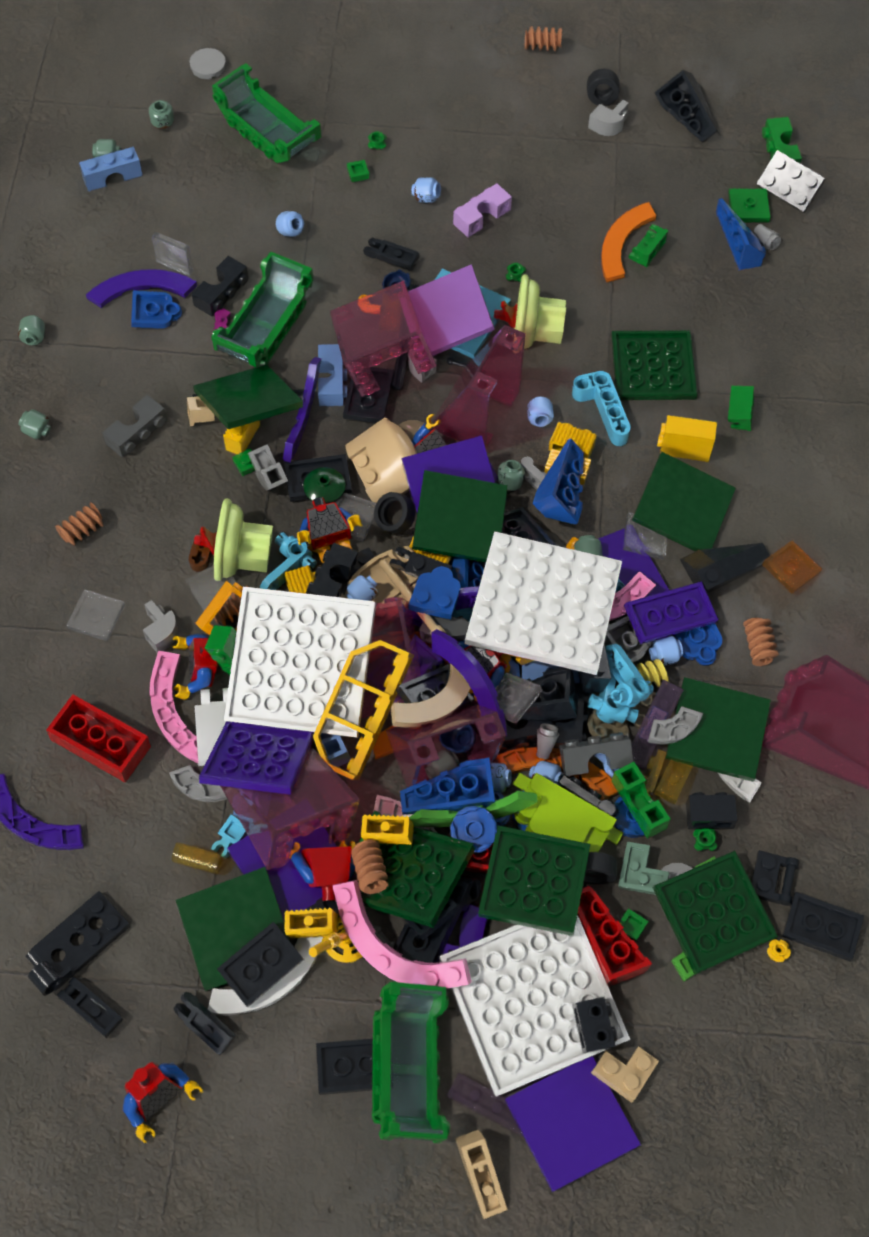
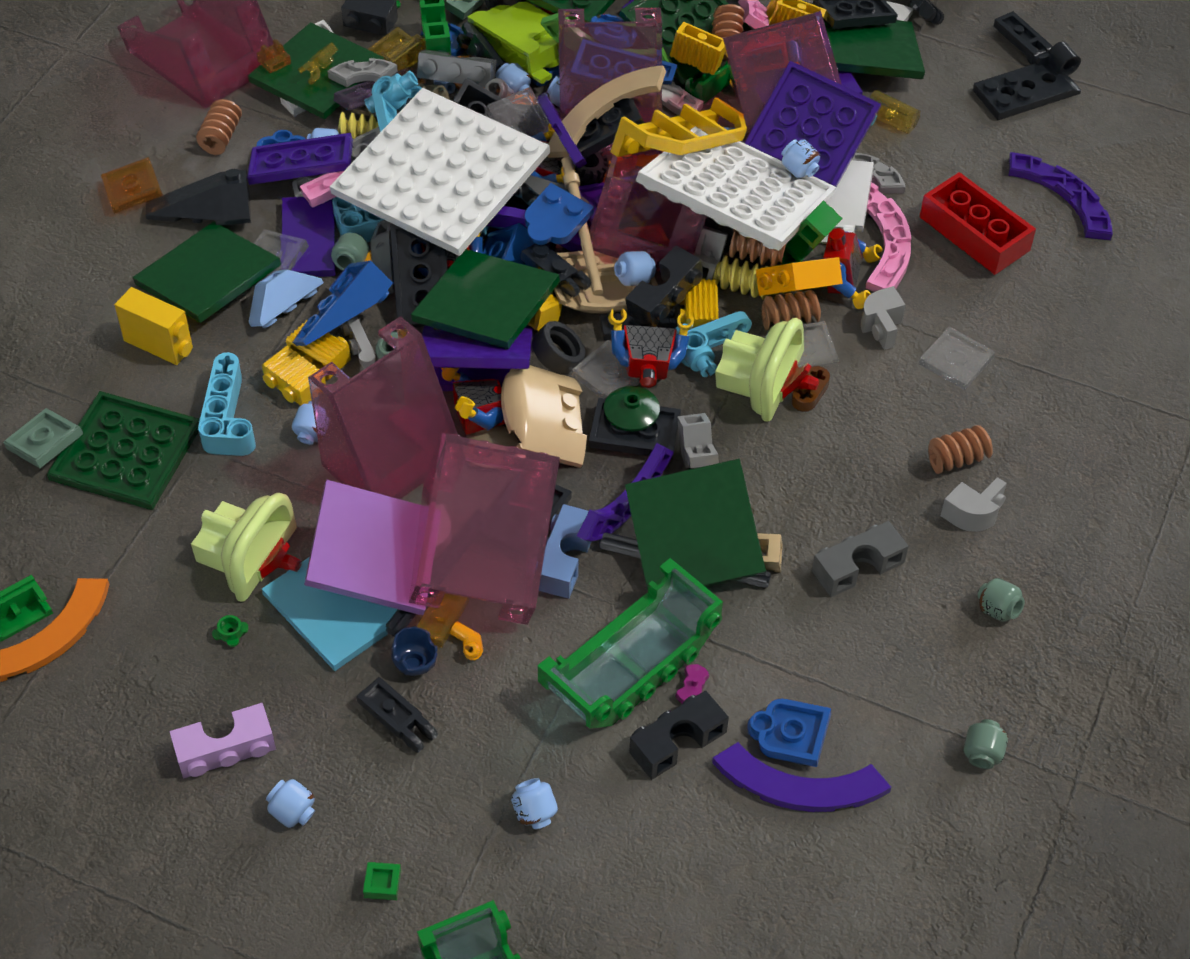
camera: 160 degrees left, 10 degrees down
(62, 483) = (974, 510): none -> light grey brick
(172, 253) = (739, 793): clear tile -> none
(257, 718) = (800, 158): none -> light blue head
(377, 140) = (318, 928): green plate -> none
(617, 502) = (279, 294): none -> light blue slope
(709, 350) = (43, 438): none -> sand green plate
(715, 721) = (321, 58): none -> clear yellow plate
(741, 407) = (55, 356): green hinge -> none
(759, 719) = (273, 57): none -> clear orange tile

